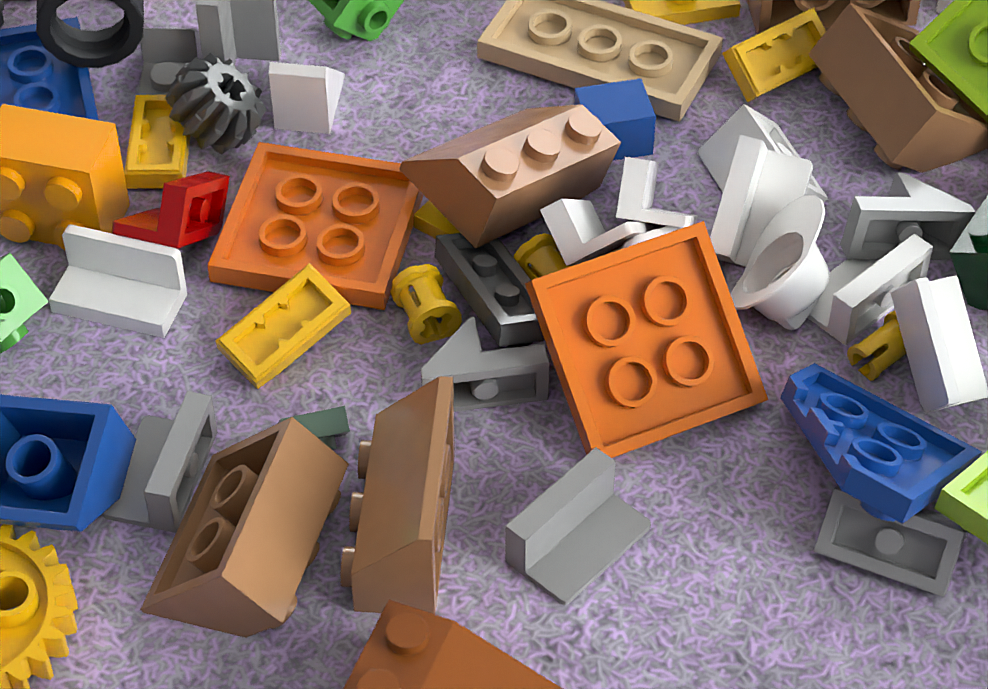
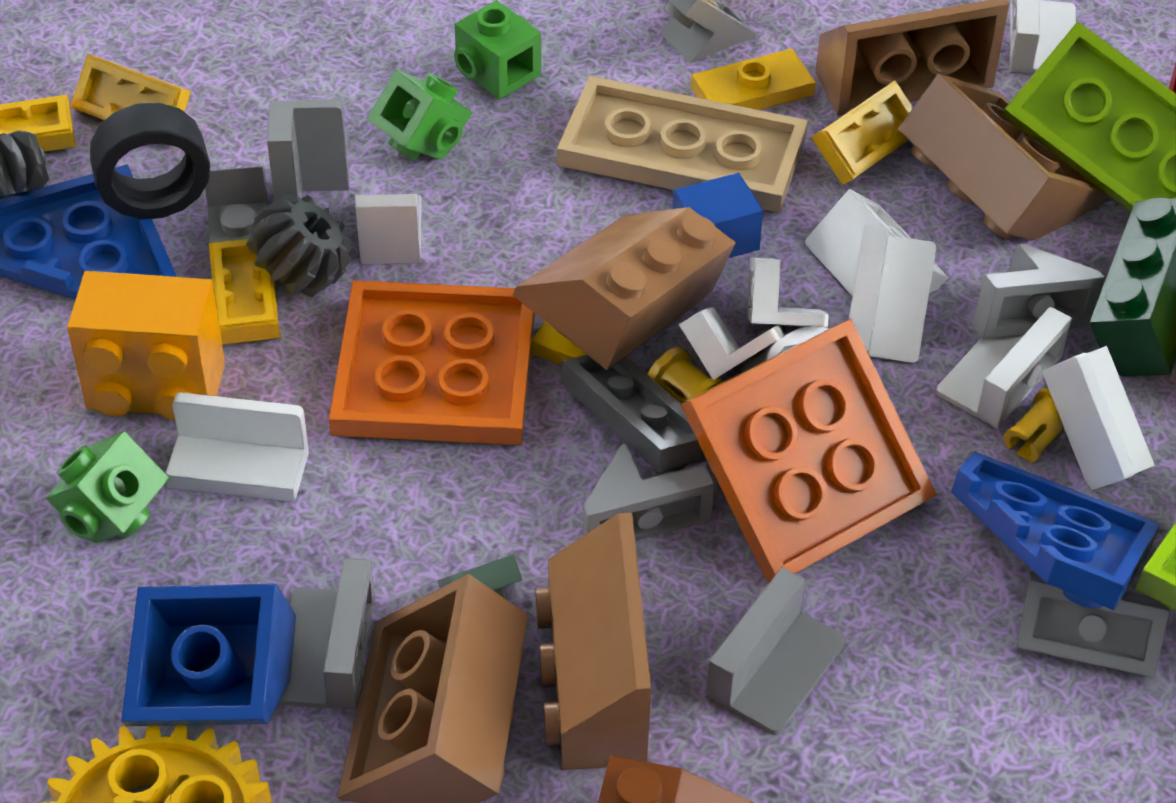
camera: 10 degrees left, 0 degrees up
(188, 212) = (300, 368): red panel -> none
(283, 326) = (423, 476): yellow plate -> none
(425, 303) = (565, 434): yellow bush -> none
(786, 266) = (925, 353): white piece -> none

